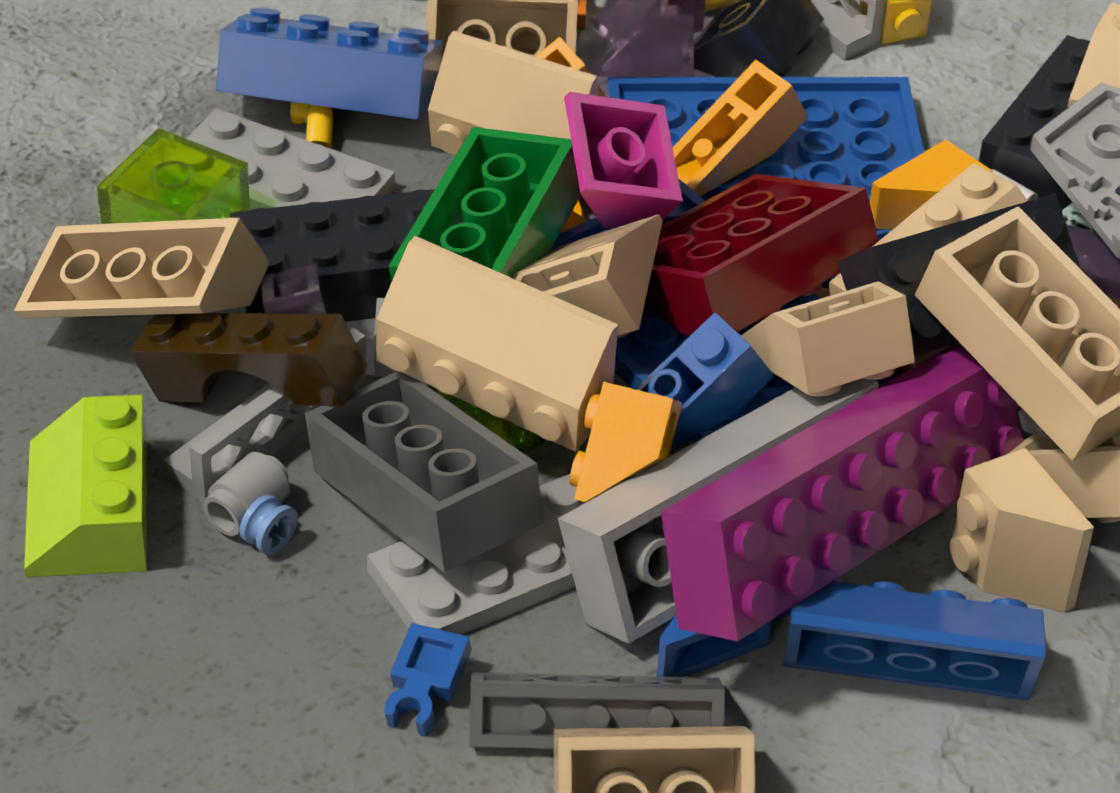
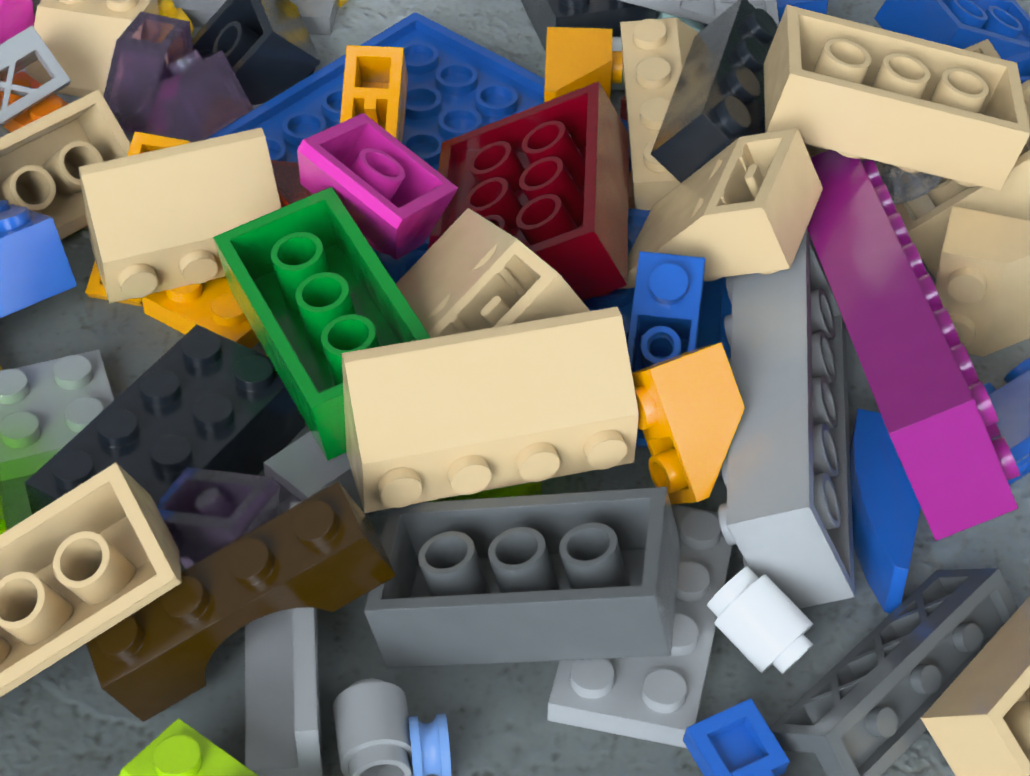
camera: 45 degrees left, 0 degrees up
(545, 607) = (761, 621): none -> white brick

